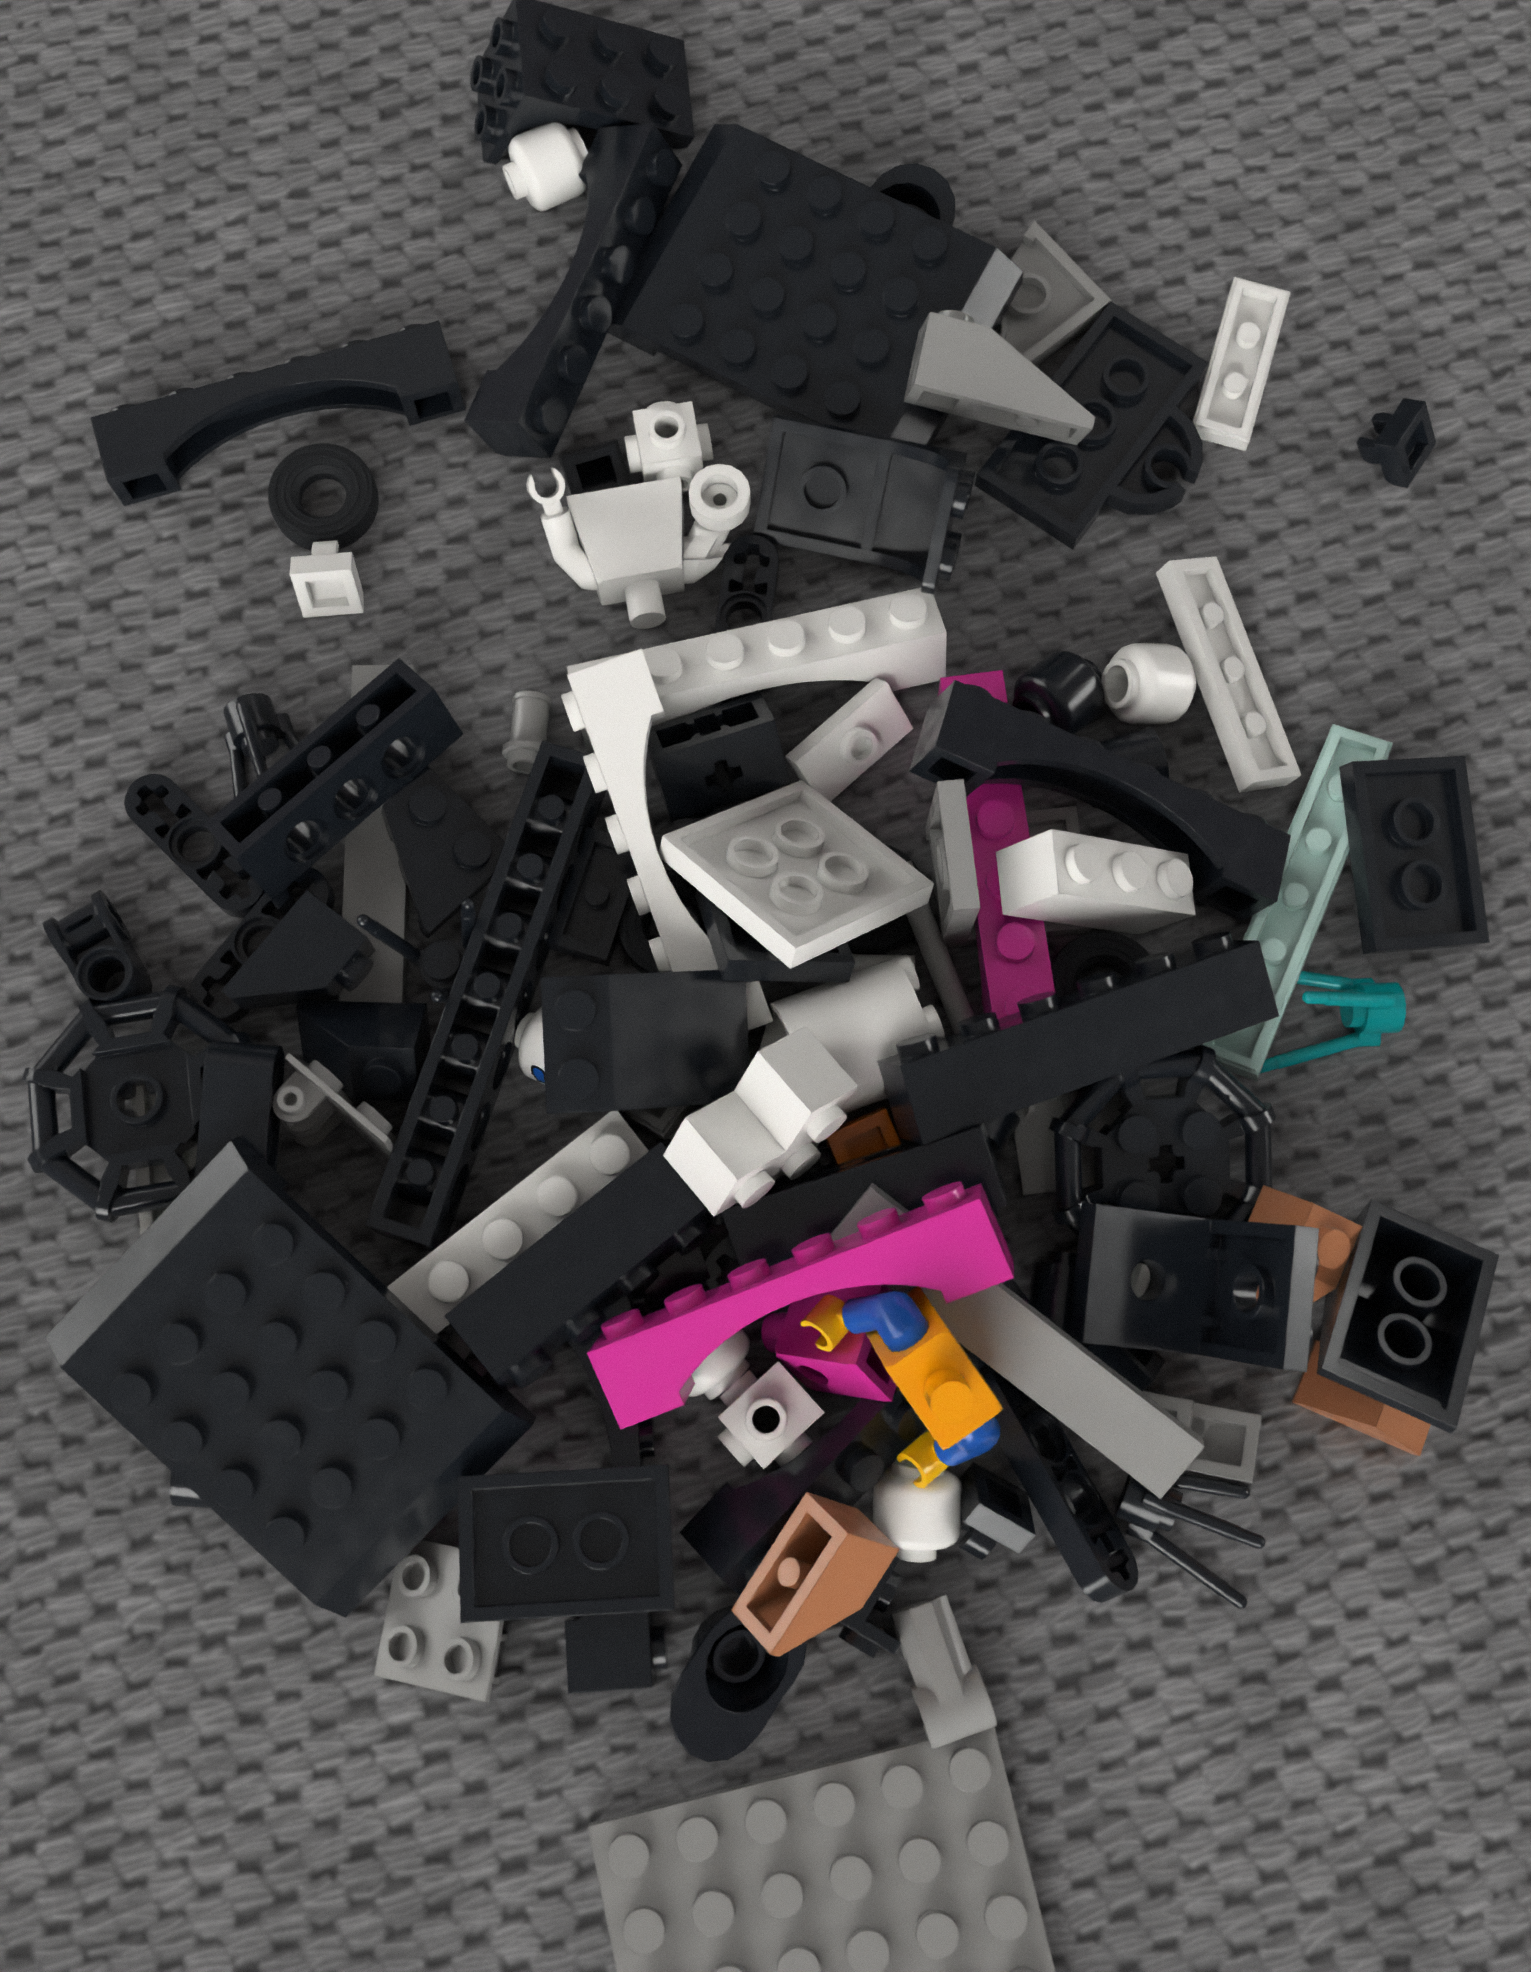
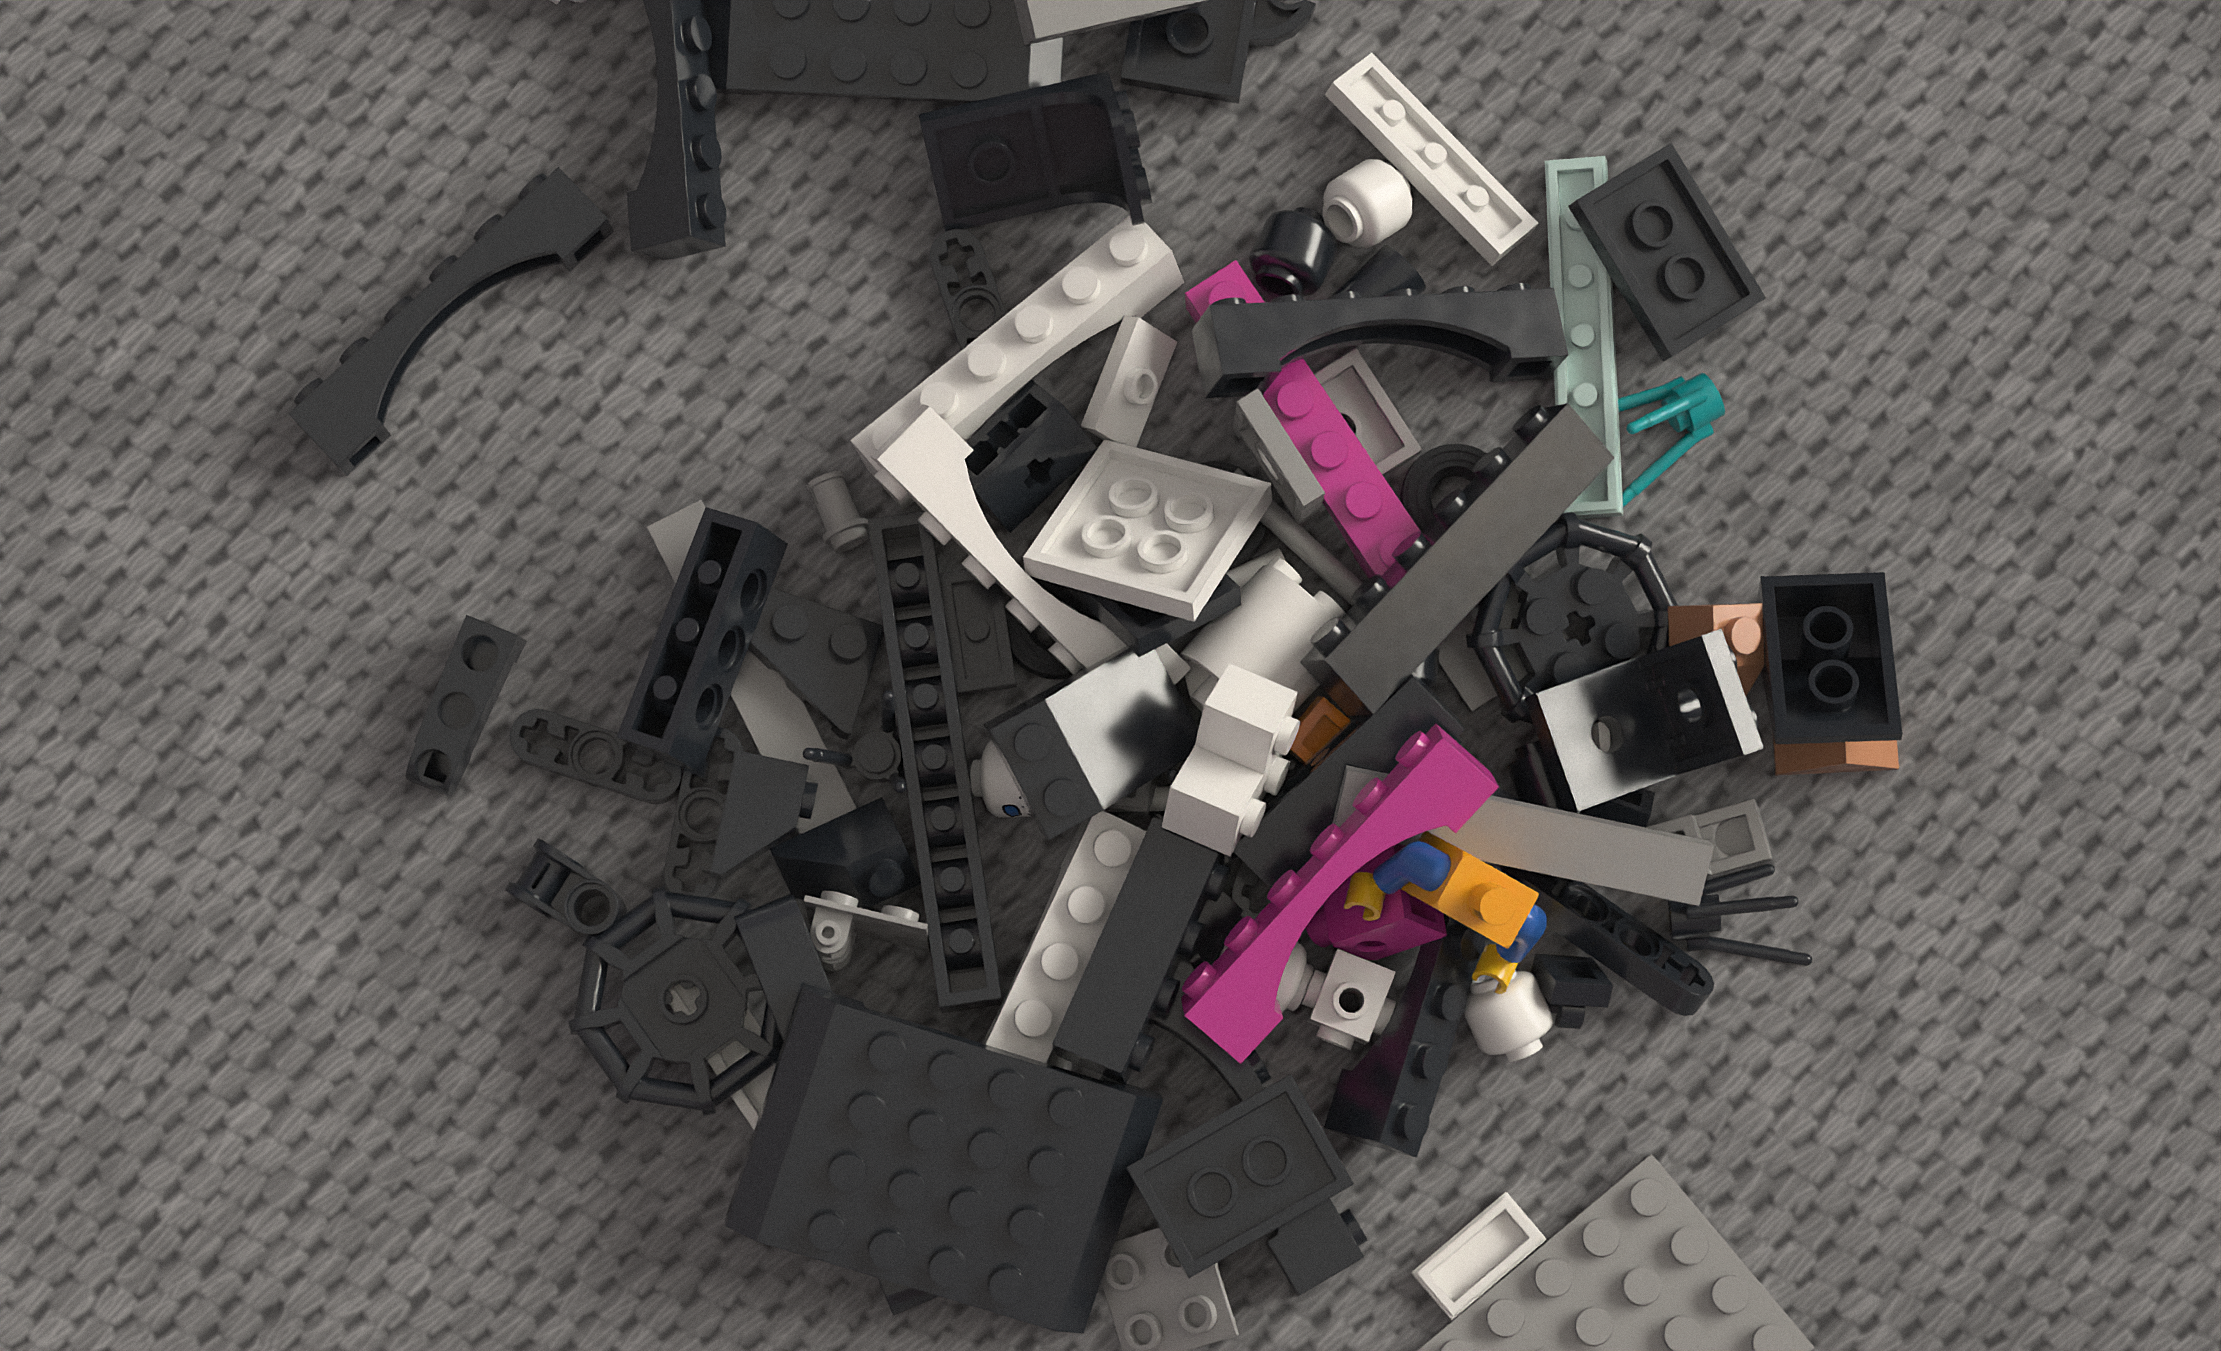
camera: 25 degrees left, 5 degrees up
(101, 740) = (462, 704): none -> black leg
(254, 733) = (594, 629): black plant -> none
(313, 464) = (525, 344): black tyre -> none
(327, 581) = (583, 459): white tile -> none
(595, 468) = (770, 238): black slope -> none
(633, 539) = (844, 289): white torso -> none
(668, 443) = (834, 206): white brick -> none
(728, 1688) = (1427, 1215): black piece -> none
(795, 1739) = (1478, 1256): none -> white tile
(813, 1574) = (1451, 1100): nougat slope -> none
(865, 1634) = (1499, 1094): black bracket -> none
(946, 1684) = (1598, 1141): light grey piece -> none
(1094, 882) = (1407, 416): white brick -> none

